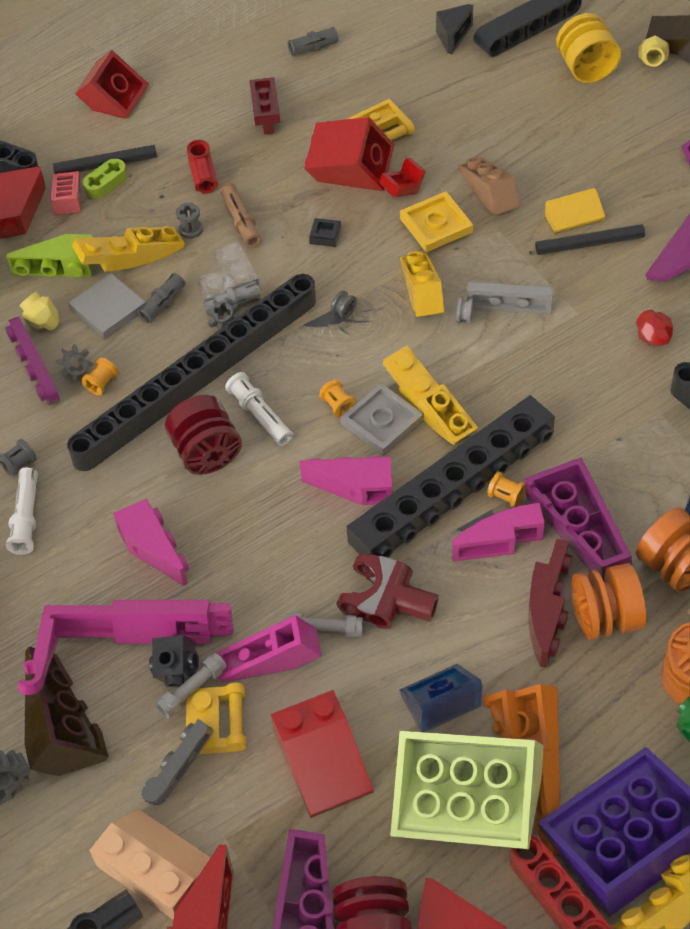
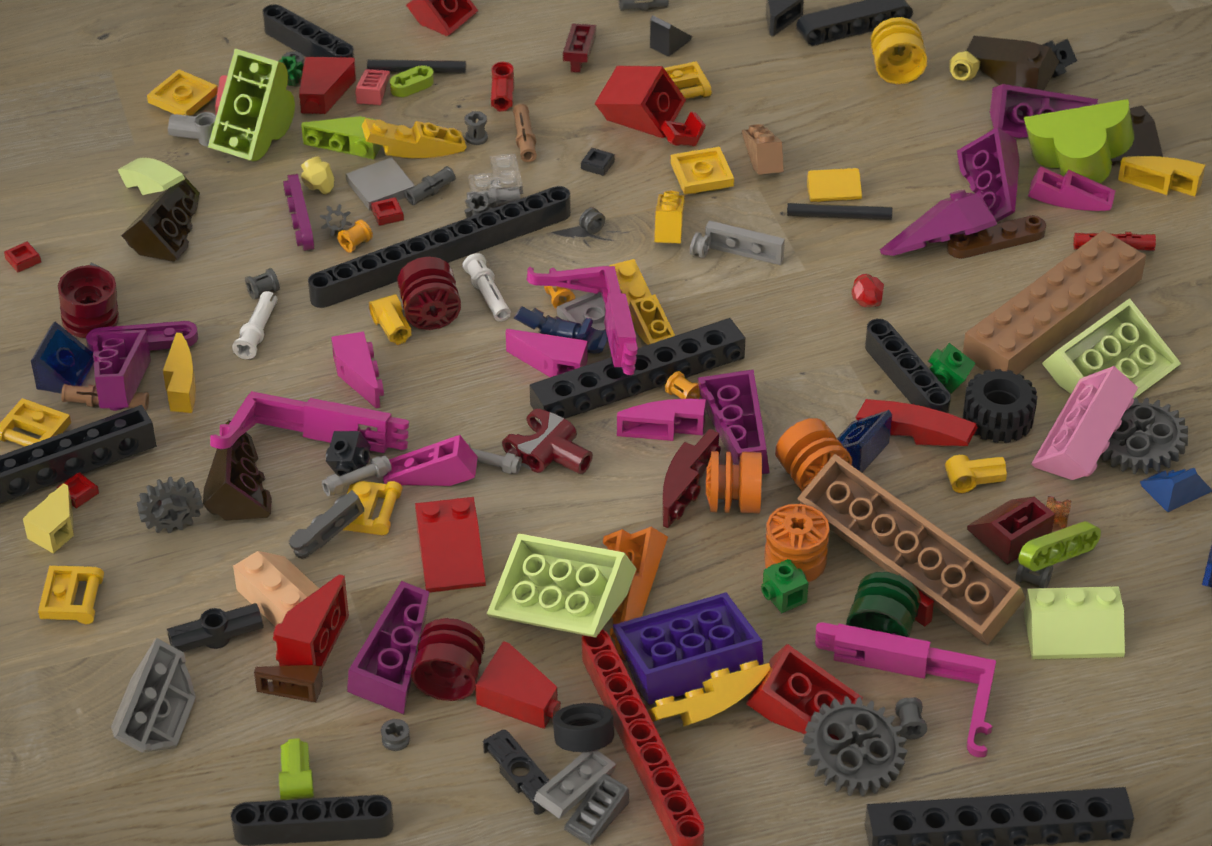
camera: 10 degrees right, 10 degrees down
(124, 337) = (387, 211): none -> red tile
(165, 466) = (389, 314): none -> yellow piece
(349, 77) = (666, 37): none -> black slope
(360, 445) = (564, 328): none -> dark blue piece
(414, 419) = (617, 314): none -> dark pink hinge
(442, 696) = (572, 527): clear blue slope -> none

